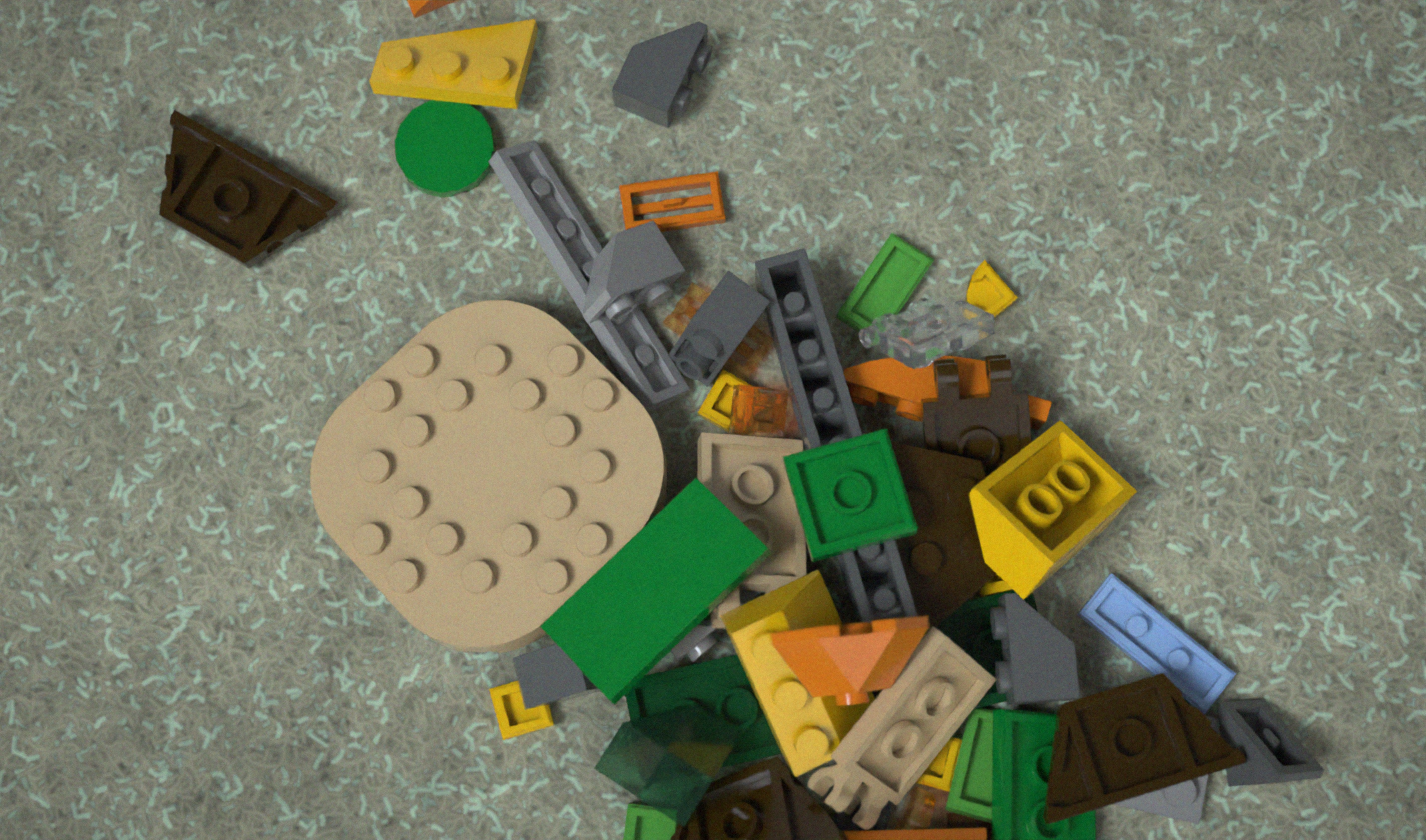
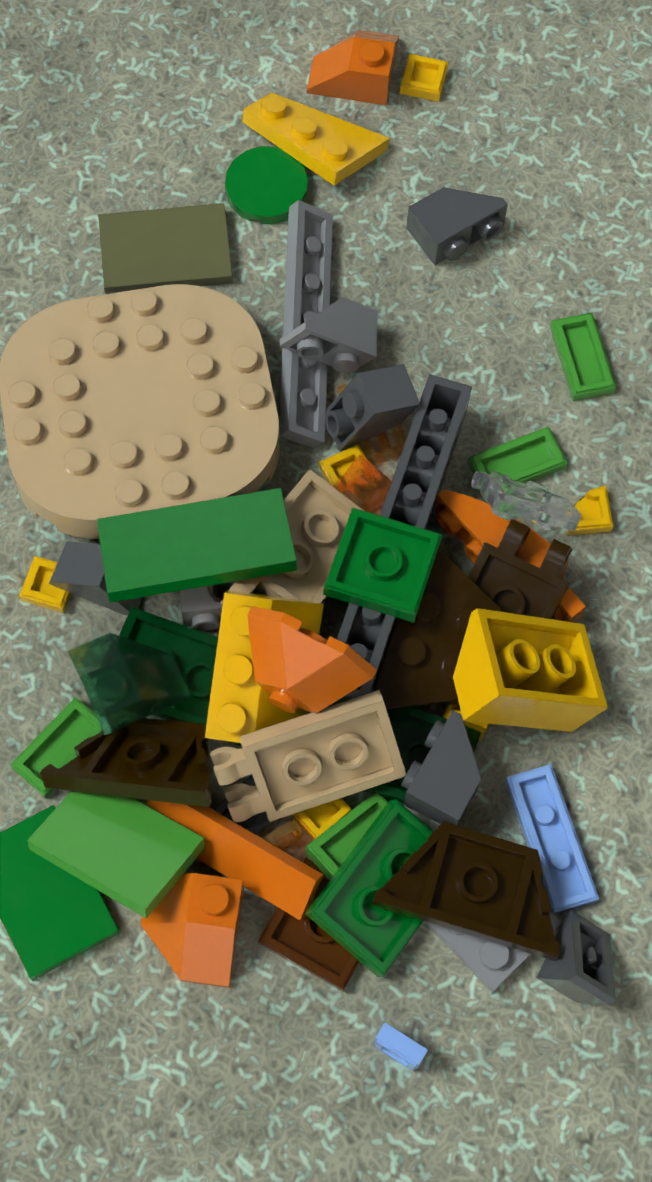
camera: 30 degrees right, 10 degrees down
(234, 196) = (99, 132): dark brown wing -> none
(391, 282) = (165, 248): none -> olive tile
(674, 184) = (408, 301): orange tile -> none
(875, 136) = (582, 356): none -> bright green tile

